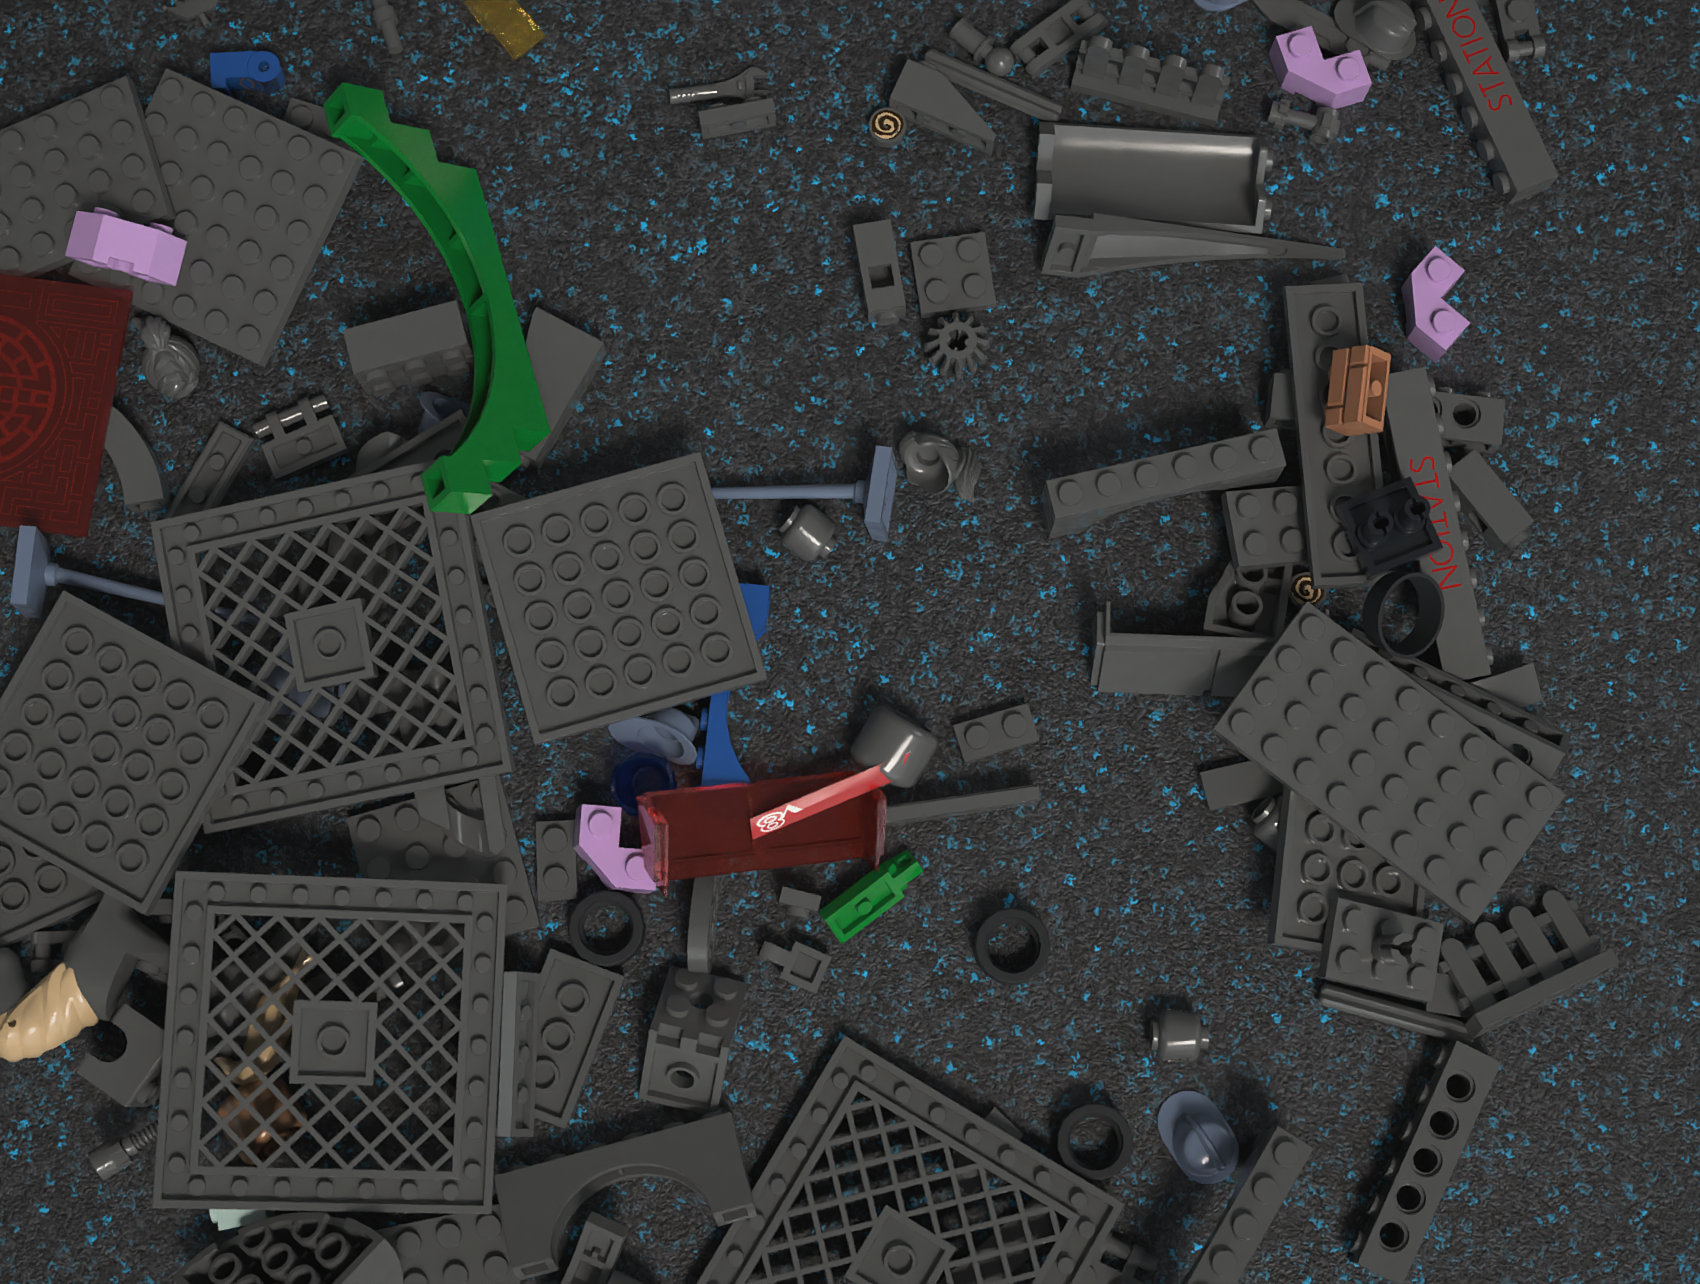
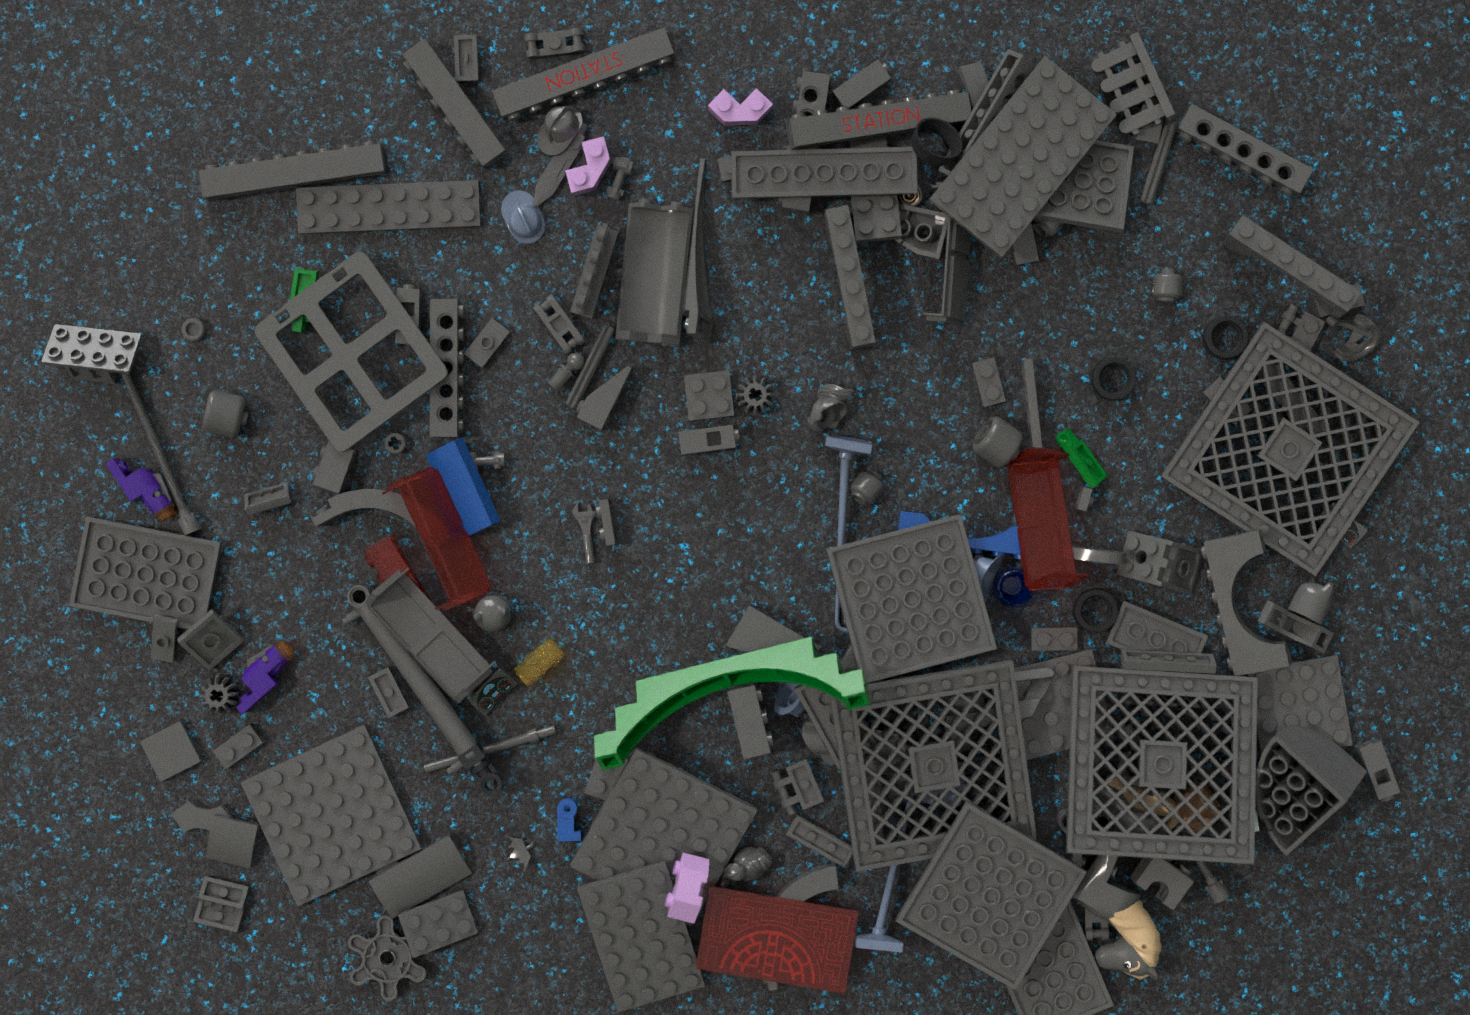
camera: 85 degrees left, 10 degrees up
(598, 844) = (1045, 614): lavender brick -> none
(802, 965) = (1120, 500): dark grey plate -> none
(818, 801) = (1031, 486): sticker -> none
(887, 127) = (614, 431): tile -> none
(1198, 1137) = (1223, 277): sand blue piece -> none
(1357, 390) = (804, 160): nougat brick -> none
(1381, 950) = (1126, 167): dark grey plate -> none
(1389, 527) = (886, 147): black plate -> none

